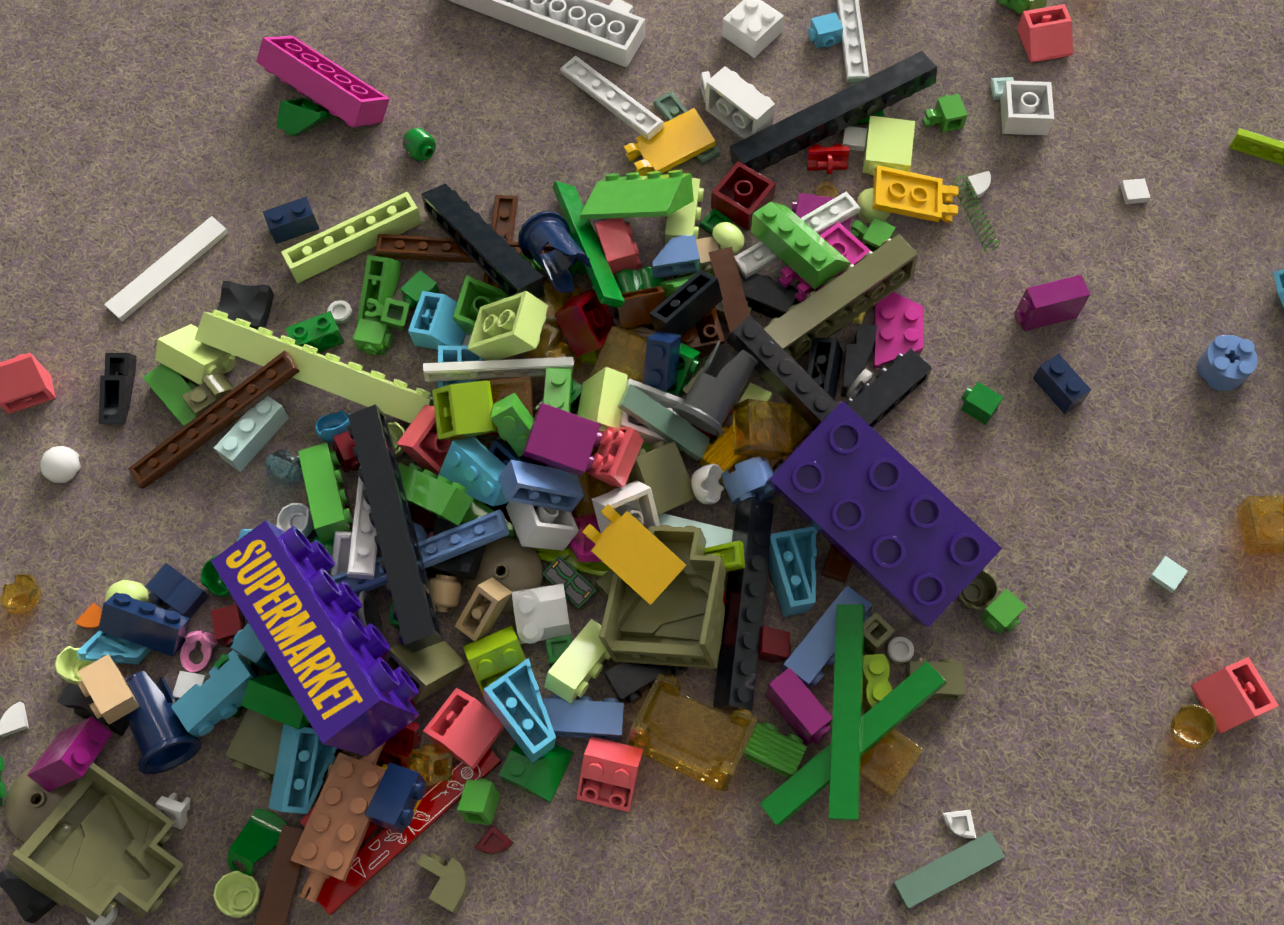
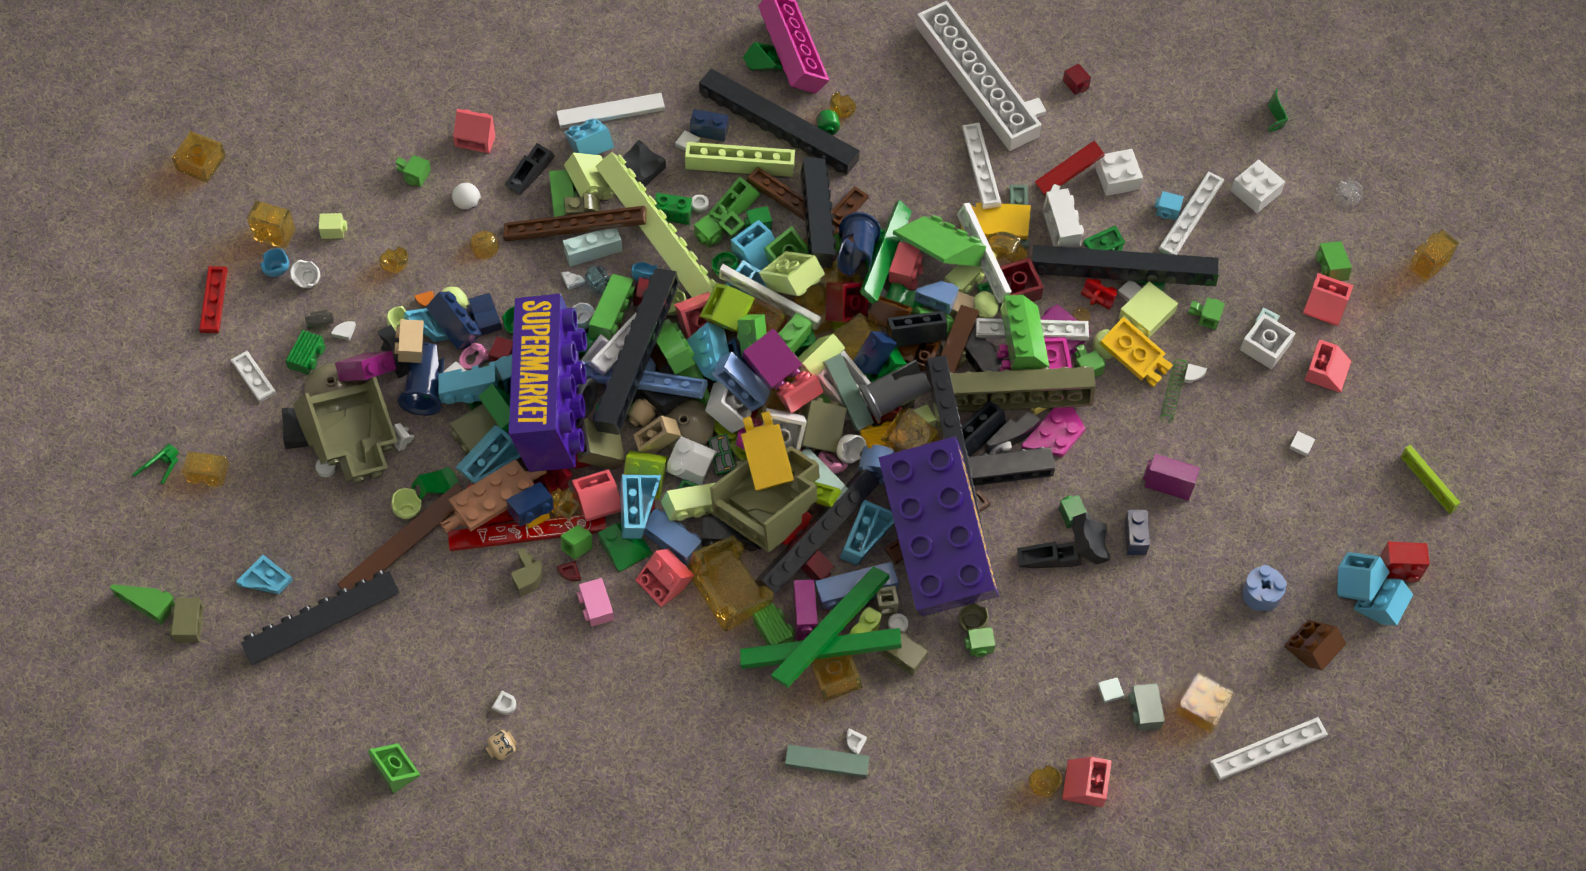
camera: 30 degrees right, 5 degrees down
(120, 508) = (484, 244): none -> clear yellow hair
(164, 311) = (589, 137): none -> medium azure slope
(254, 486) = (572, 280): none -> white tile
(273, 252) = (684, 138): none -> white tile
(363, 172) = (778, 121): none -> black brick
(413, 359) = (725, 258): none -> green hair
(421, 117) = (842, 105): none -> clear yellow hair
(553, 861) = (596, 602): none -> bright pink brick
(702, 163) = (1007, 245): none -> clear yellow brick
(703, 47) = (1070, 167): none -> red tile
(703, 191) = (988, 263): none -> white tile
(703, 515) = (836, 466): none -> bright pink piece
(792, 101) = (1106, 240): none -> green slope
(995, 466) = (1049, 555): none -> black slope
(1021, 416) = (1090, 538): none -> black brick
(1097, 99) = (1328, 366): none -> coral slope
(1221, 568) = (1146, 706): none -> brick

